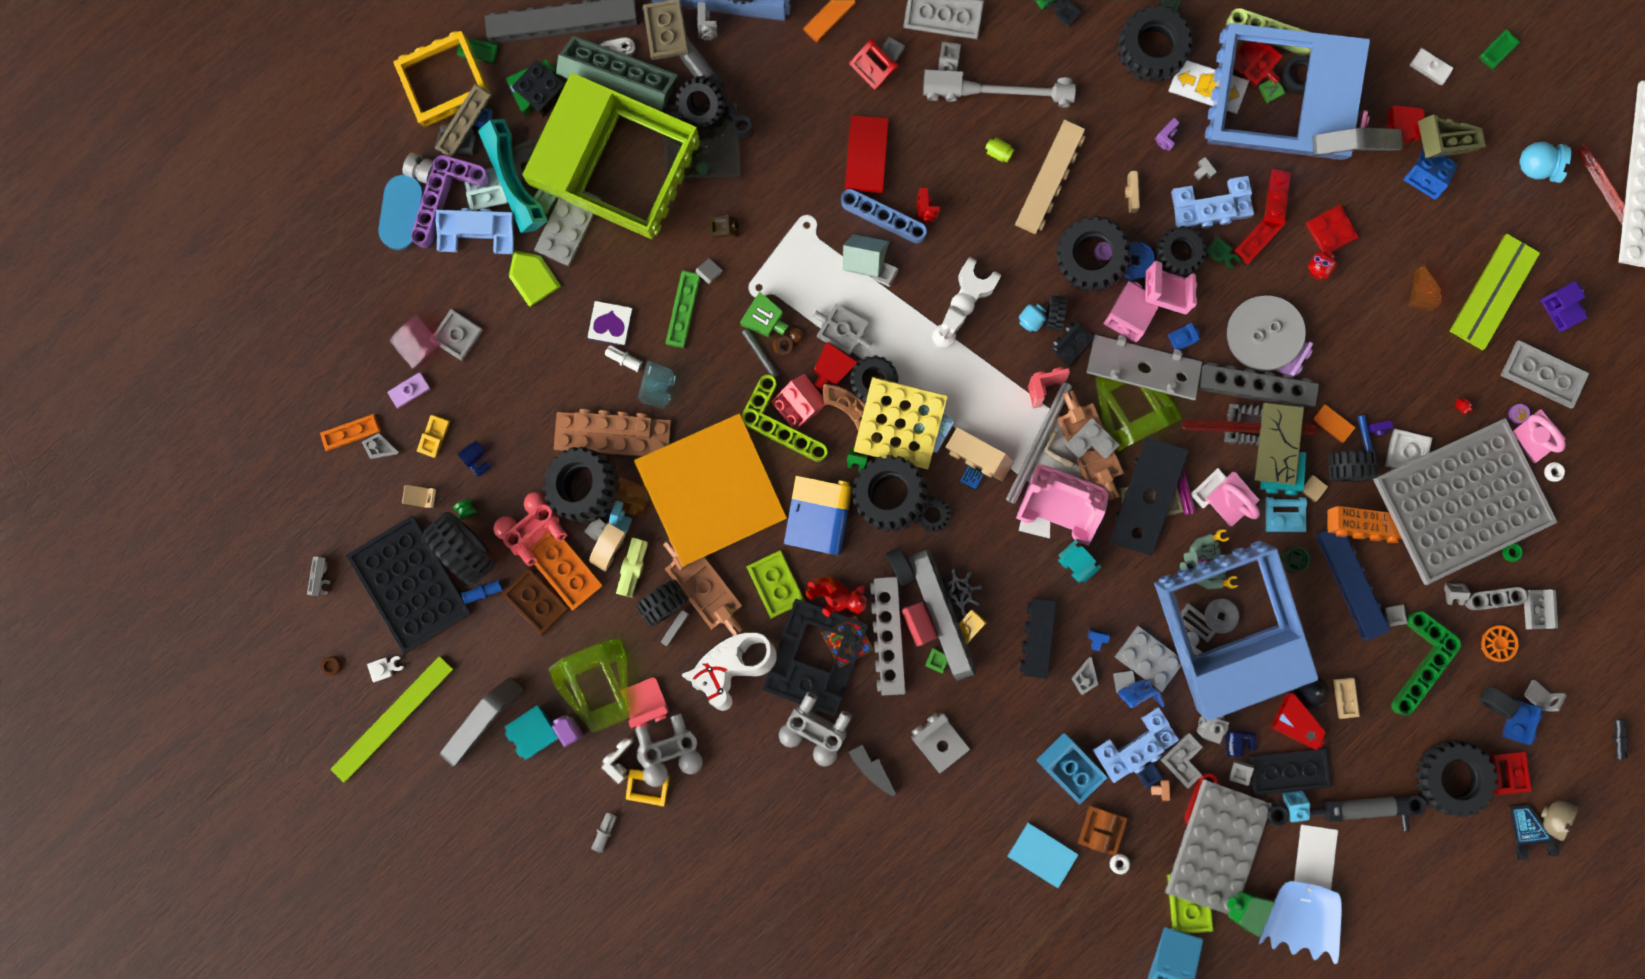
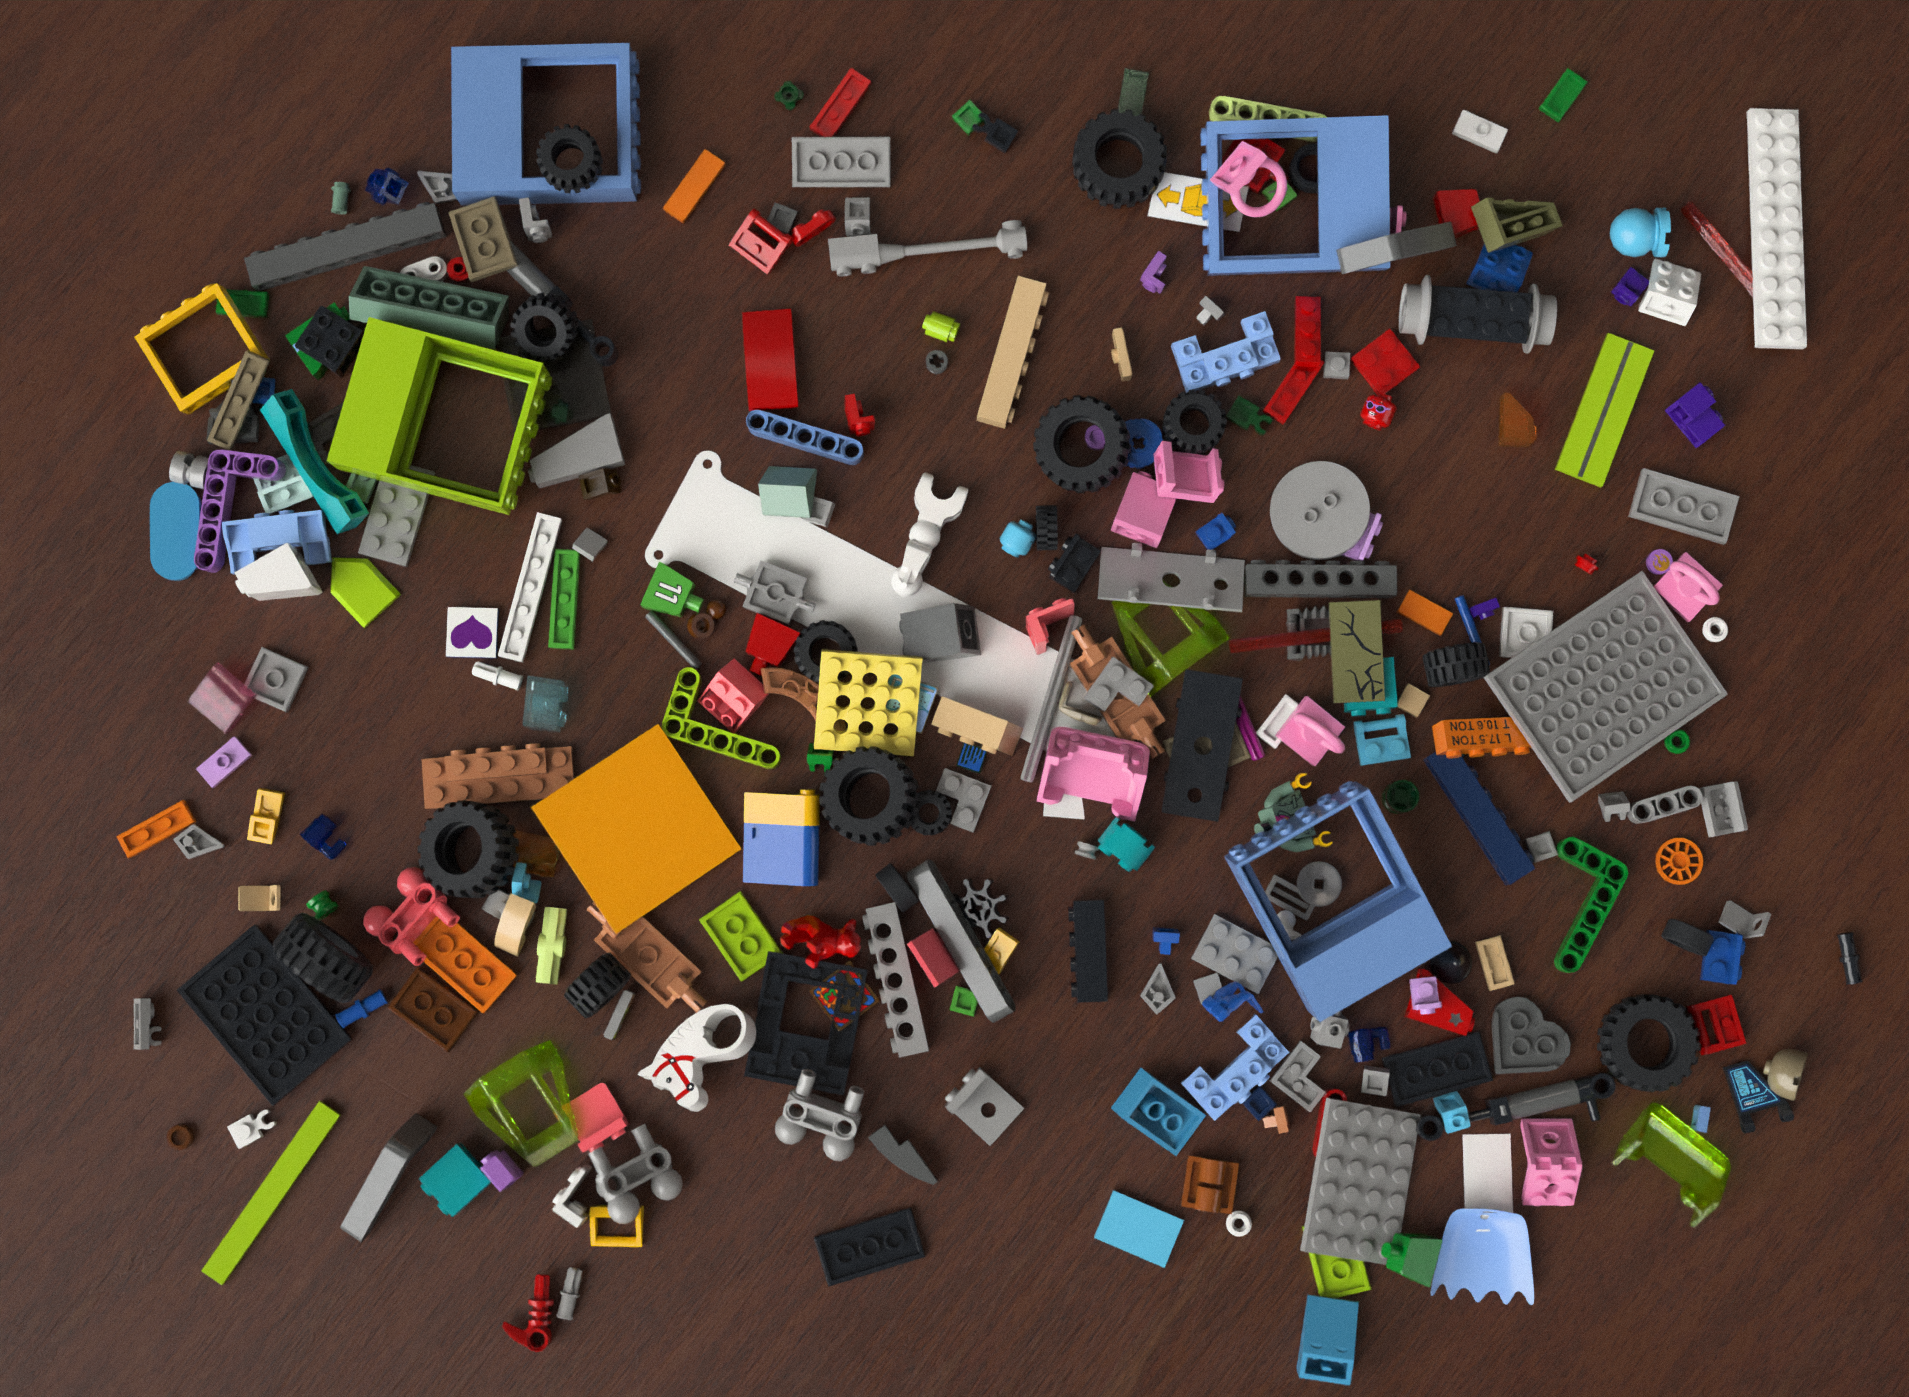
camera: 15 degrees left, 0 degrees up
(471, 257) = (278, 576): none -> white slope
(579, 844) = (539, 1319): none -> red piece
(642, 55) = (458, 277): none -> red plate
(658, 296) = (530, 587): none -> white plate
(711, 202) = (580, 453): none -> light grey slope
(836, 834) = (869, 1246): none -> black tile
(920, 57) = (820, 221): none -> red plate
(963, 379) = (940, 633): none -> dark grey slope
(965, 505) = (970, 794): none -> light grey plate
(987, 180) = (941, 356): none -> dark grey bush
(1048, 561) = (1086, 850): none -> light grey bush
(1249, 63) = (1240, 170): none -> bright pink tile
(1290, 713) = (1424, 995): none -> lavender bracket
(1295, 226) = (1336, 365): none -> light grey plate
(1360, 760) = (1525, 1040): none -> dark grey plate
(1367, 858) = (1550, 1163): none -> bright pink bracket
(1411, 203) = (1477, 314): none -> black brick
(1468, 869) = (1681, 1155): none -> clear neon green windscreen
(1487, 842) = (1700, 1118): none -> medium blue tile
(1528, 202) = (1630, 287): none -> dark purple bracket
(1560, 211) = (1671, 292): none -> white bracket

